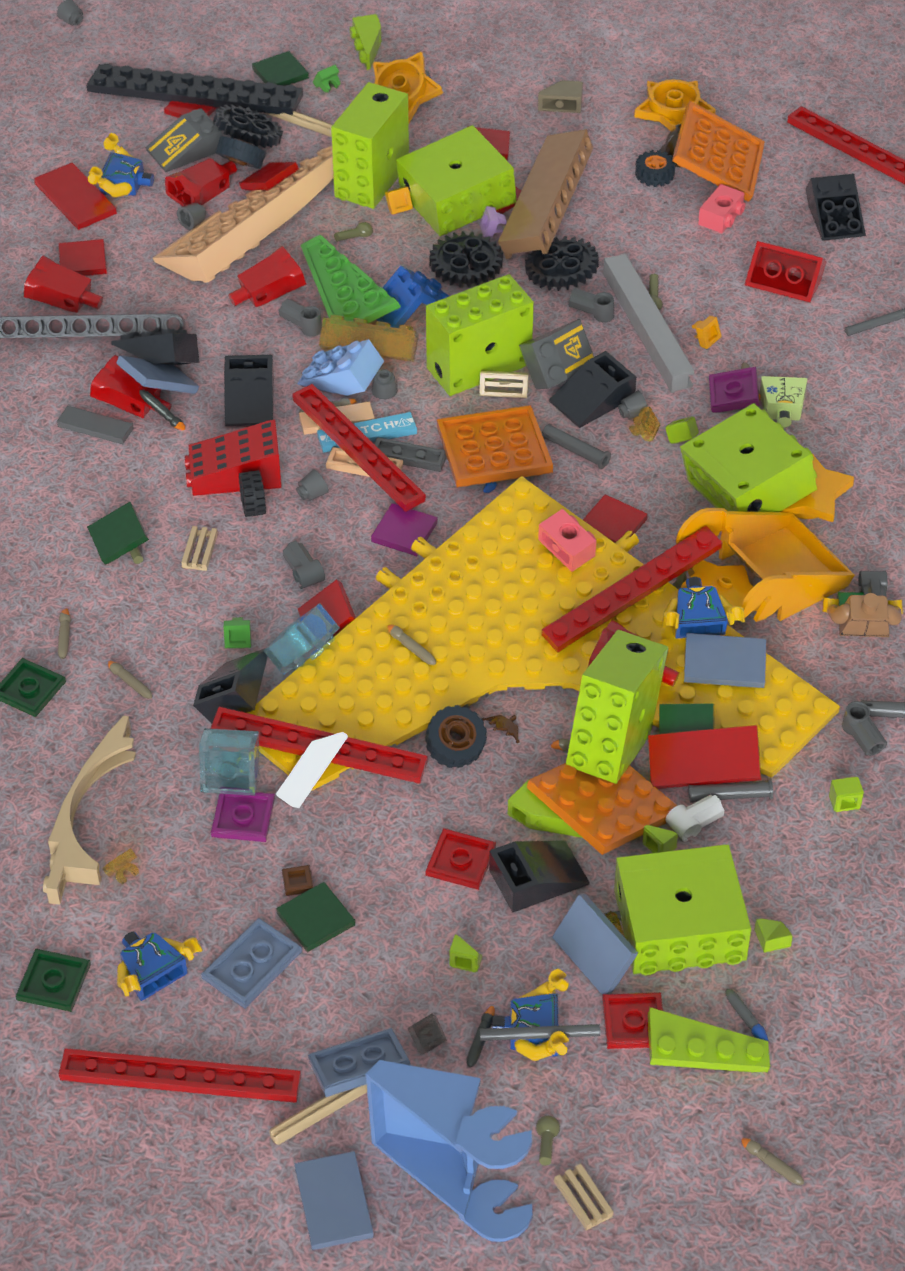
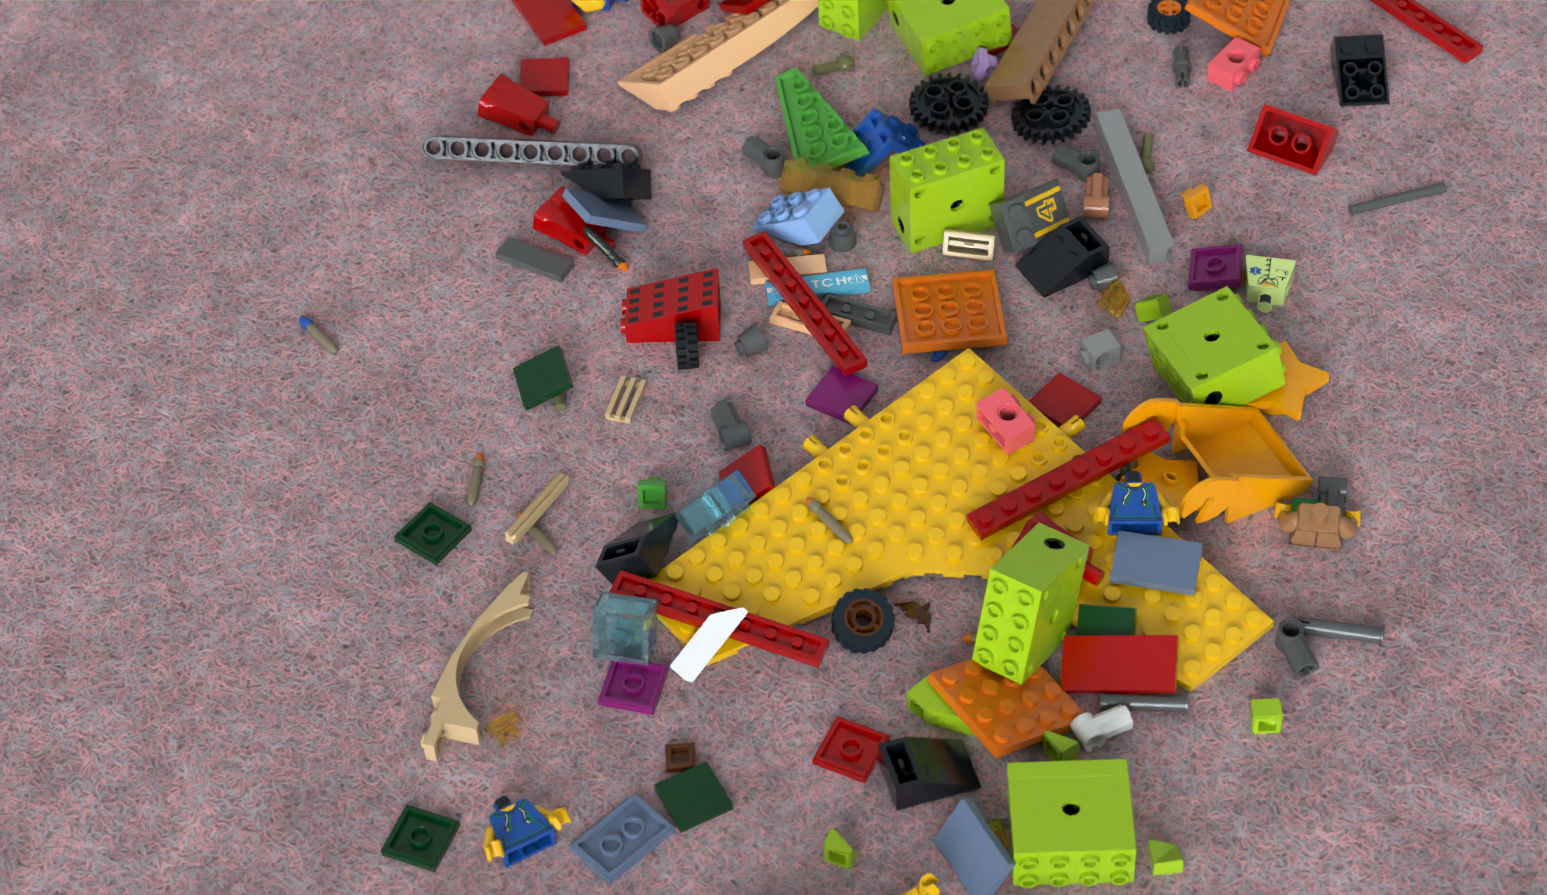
camera: 10 degrees right, 0 degrees up
(127, 655) = (536, 508): none -> tan axle
(248, 389) = (698, 232): black slope -> none
(268, 279) = (735, 113): red piece -> none
(399, 200) = (886, 33): light orange tile -> none
(576, 446) = (1037, 317): dark grey pin -> none
(615, 338) = (1096, 198): none -> nougat piece
(639, 472) = (1099, 351): none -> light grey brick
(674, 214) = (1181, 66): none -> dark grey pin

